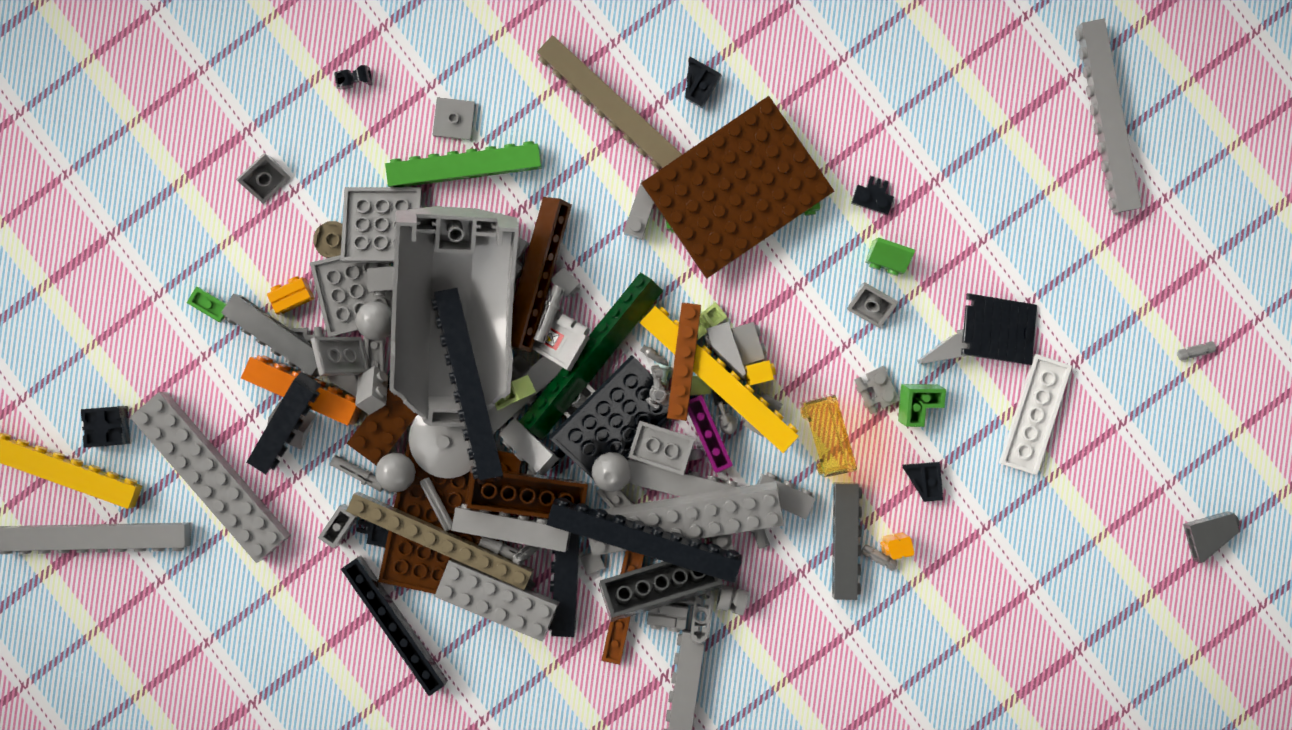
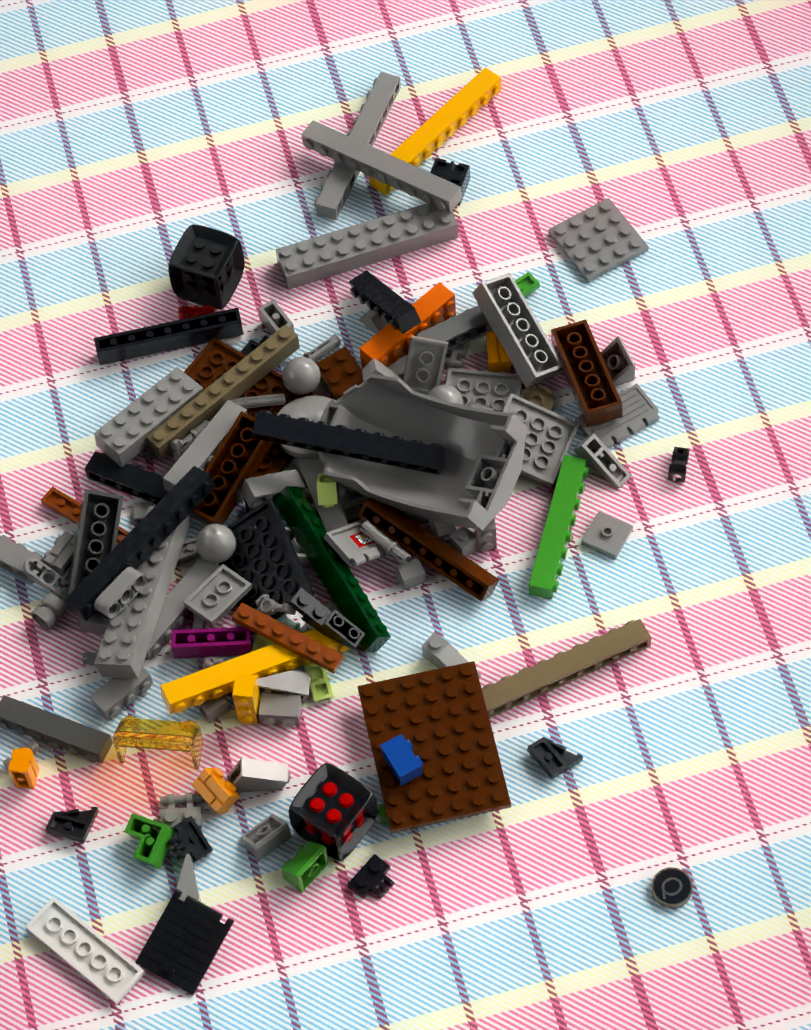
camera: 110 degrees right, 30 degrees down
(117, 497) = (382, 166): none -> light grey brick
(120, 250) = (598, 240): none -> light grey plate
(266, 280) = (517, 329): none -> light grey brick
(287, 199) = (586, 373): none -> reddish brown brick
(304, 622) = (206, 266): none -> black piece
(320, 156) = (636, 409): none -> light grey hinge
(354, 603) = (188, 311): none -> clear red plate
(377, 151) = (602, 460): none -> light grey slope
(653, 333) = (325, 621): none -> black slope
(705, 533) = (120, 592): none -> light grey beam
(770, 204) = (401, 759): none -> blue brick
(821, 334) = (259, 775): none -> slope
(838, 247) = (333, 811): none -> black piece
(849, 365) = (216, 790): none -> light orange brick
(905, 367) = (190, 840): none -> black hinge

